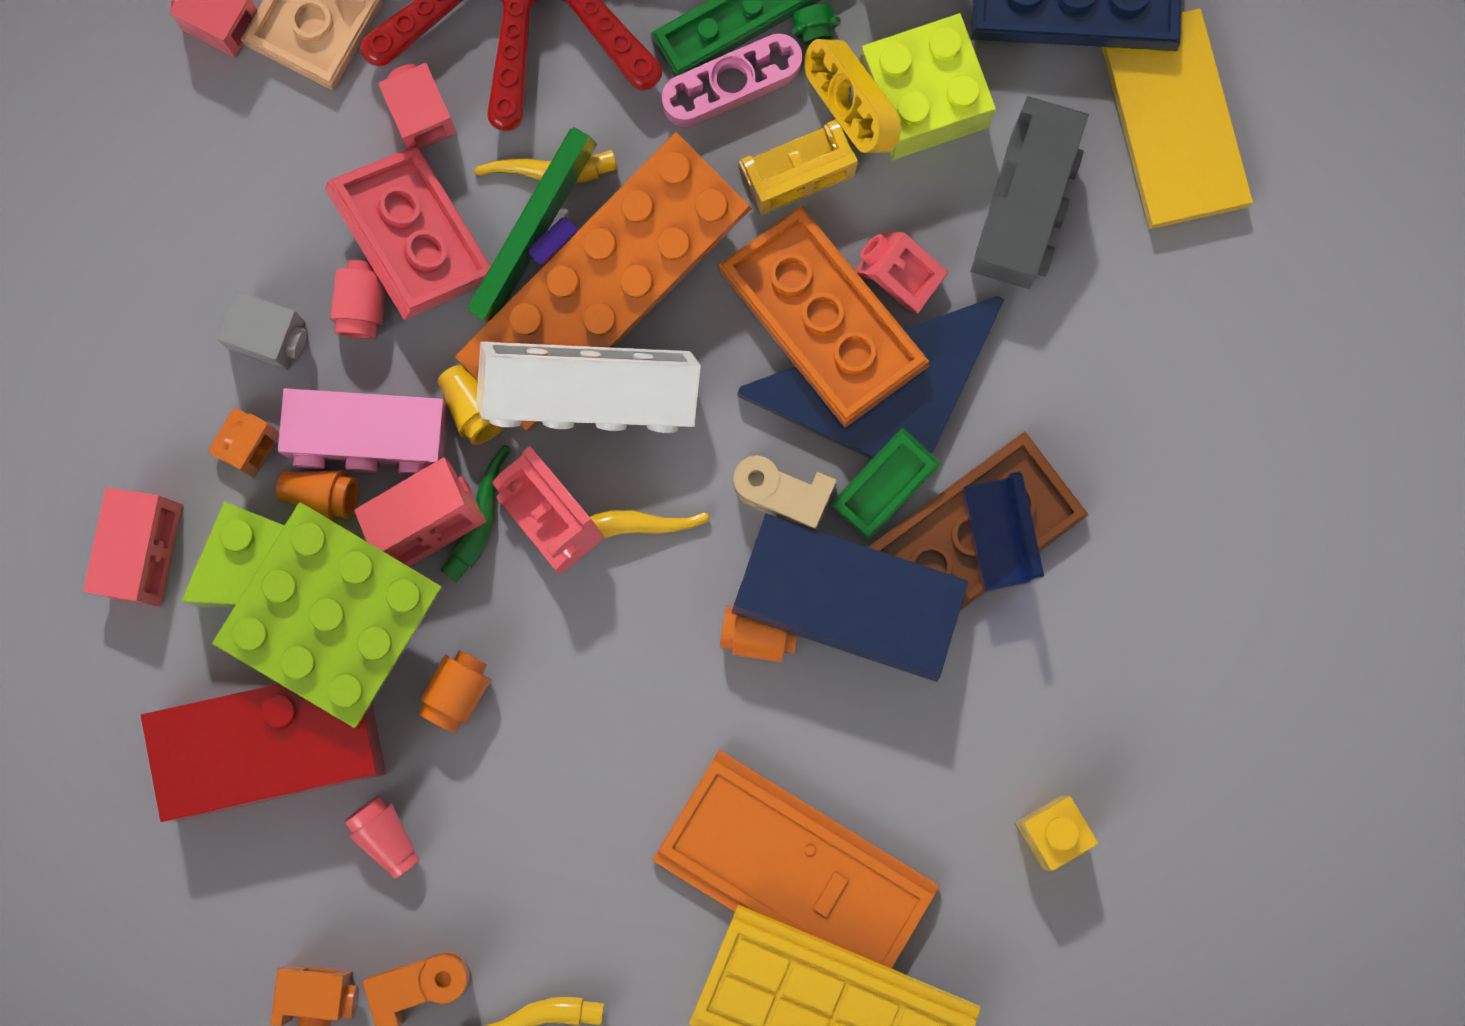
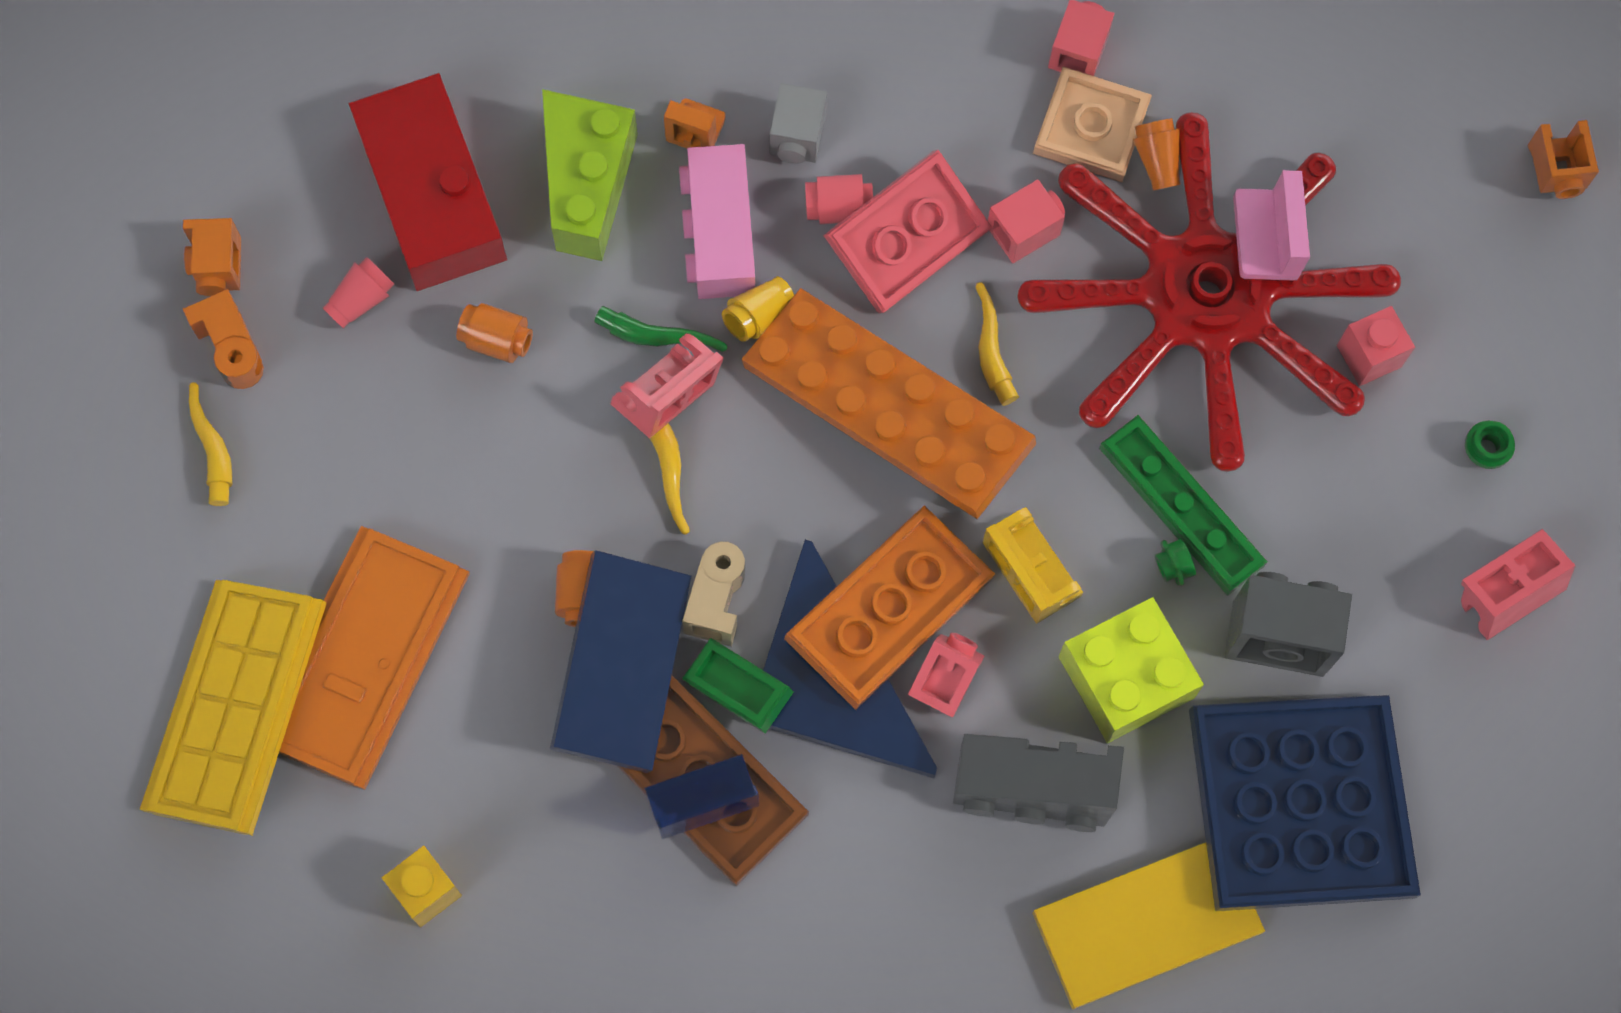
camera: 80 degrees right, 10 degrees down
(133, 546) = (589, 51): coral hinge -> none
(326, 492) = (659, 196): orange cone -> none
(327, 615) = (542, 205): lime plate -> none
(420, 514) = (647, 277): coral hinge -> none
(532, 224) = (931, 332): green tile -> none
(552, 241) = (917, 349): dark purple tile -> none
(587, 386) = (784, 396): white brick -> none
(692, 80) = (1076, 472): bright pink beam -> none
(871, 119) = (1104, 597): yellow beam -> none

